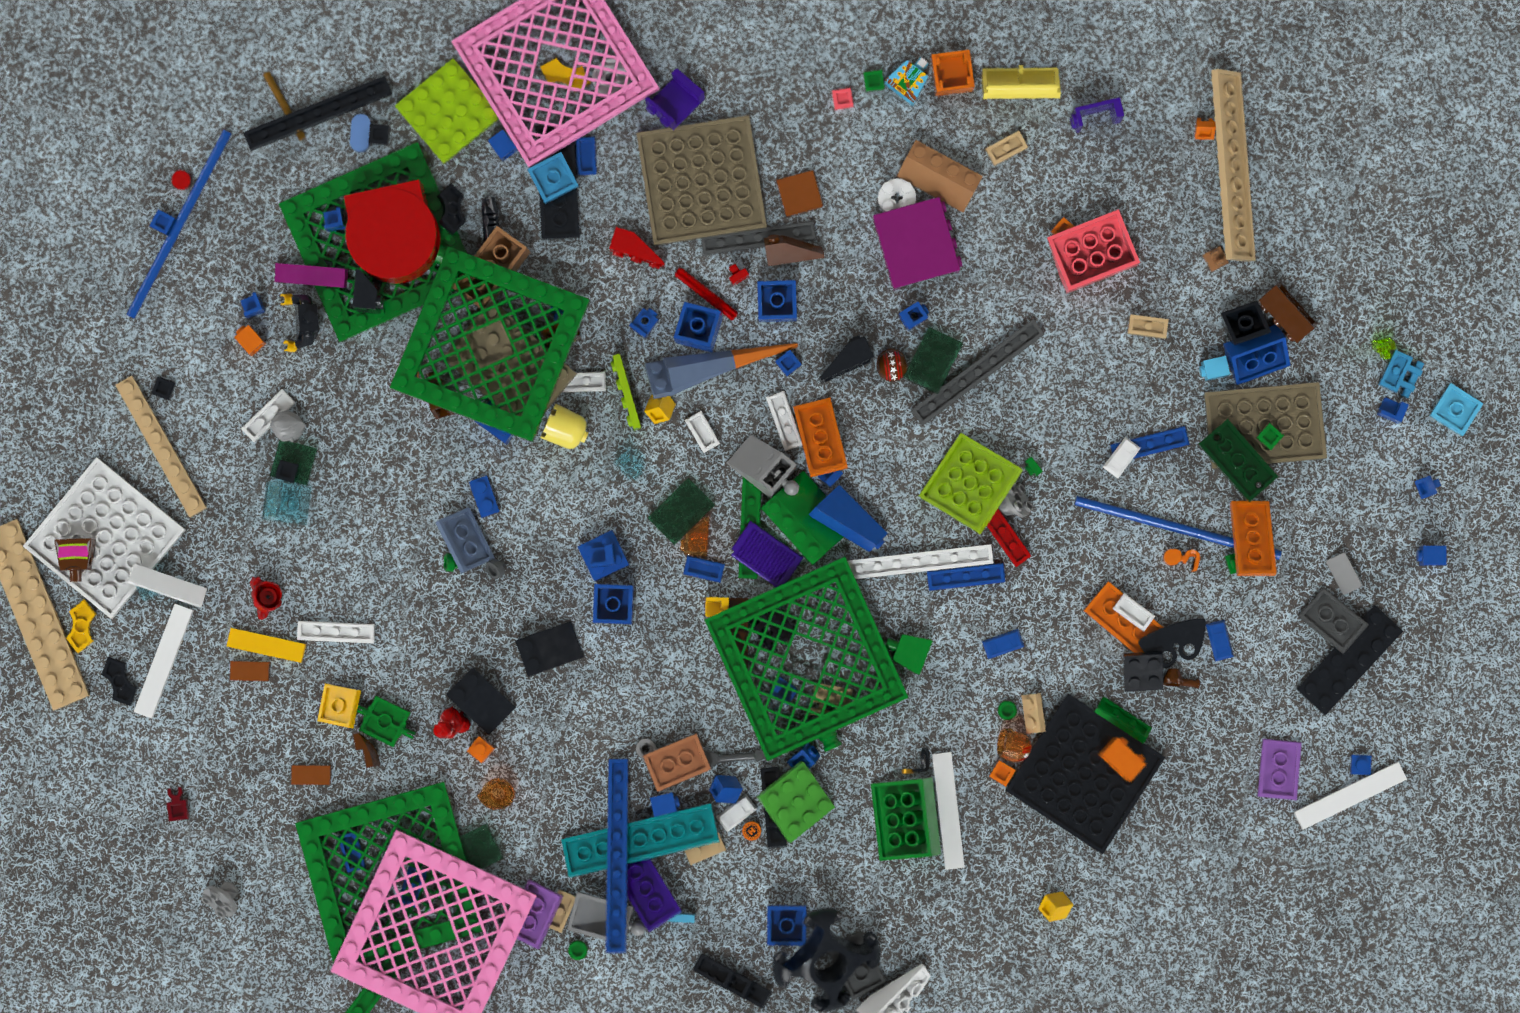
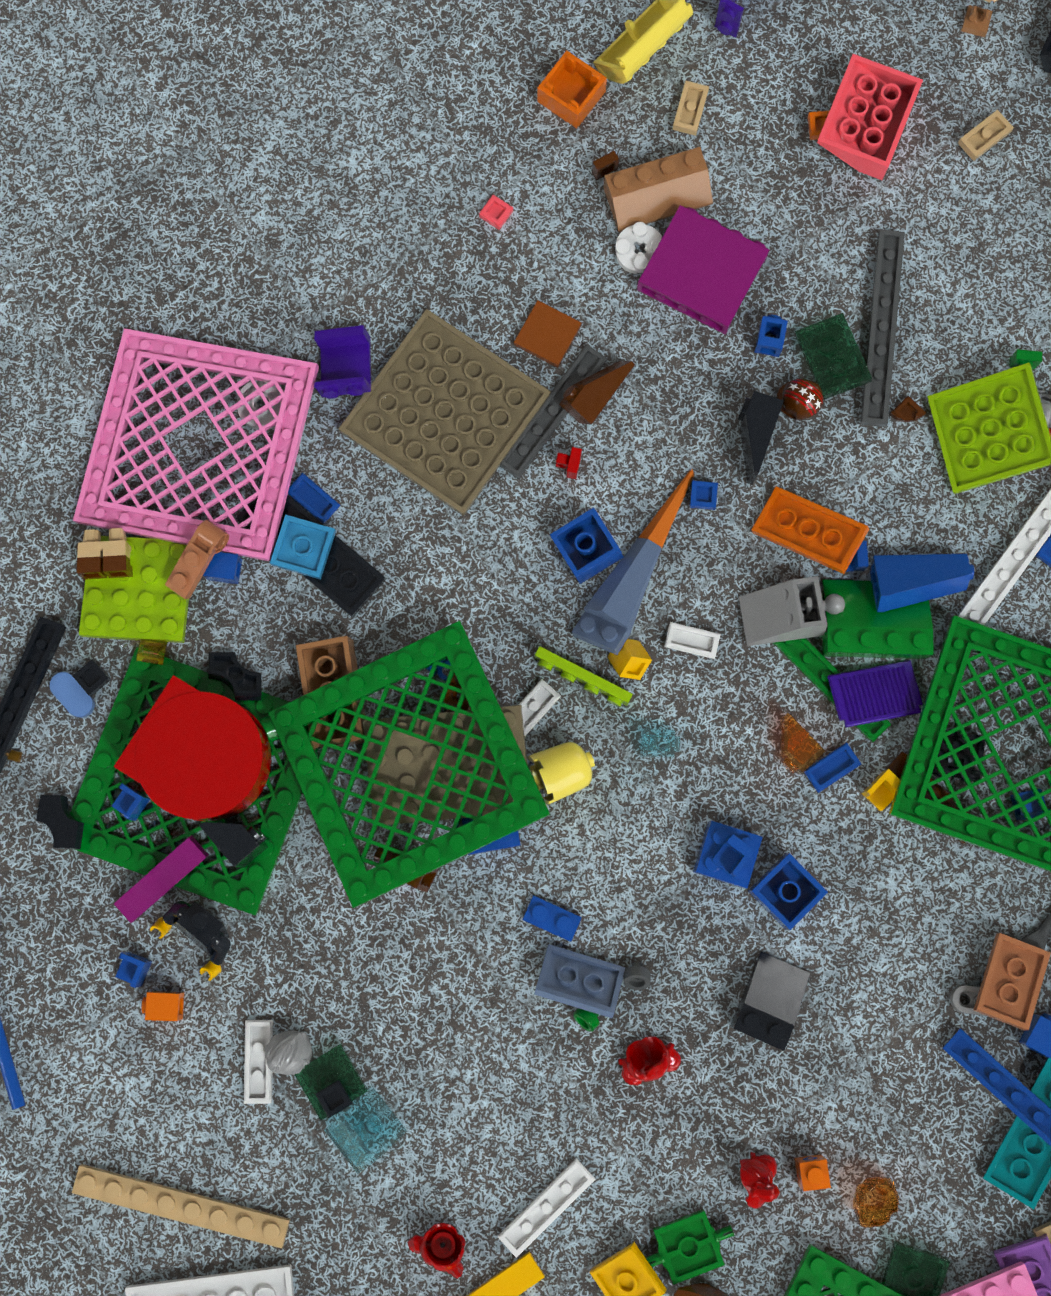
camera: 50 degrees left, 5 degrees down
(163, 388) = (125, 1144): black tile -> none
(289, 199) = (55, 814): none -> black tile
(422, 152) = (151, 651): none -> clear yellow tile
(446, 80) = (104, 558): none -> hips
(459, 614) = (648, 1060): none -> red hair
(480, 700) = (758, 1123): black slope -> none
(489, 216) = (278, 646): black hinge -> none
(492, 128) = (196, 557): none -> nougat plate
(558, 73) = (206, 448): yellow tile -> none
(630, 245) = (444, 535): red slope -> none
(644, 329) = (527, 603): blue brick -> none
(681, 511) = (753, 735): clear green plate -> none
(706, 294) = (558, 510): red axle -> none
(777, 301) = (634, 447): blue brick -> none
(784, 421) = (756, 552): white tile -> none
(873, 81) = (508, 167): green plate -> none
(908, 80) = (540, 135): torso -> none
(926, 133) = (605, 165): none -> reddish brown tile
(943, 429) = (907, 411): none -> reddish brown tile

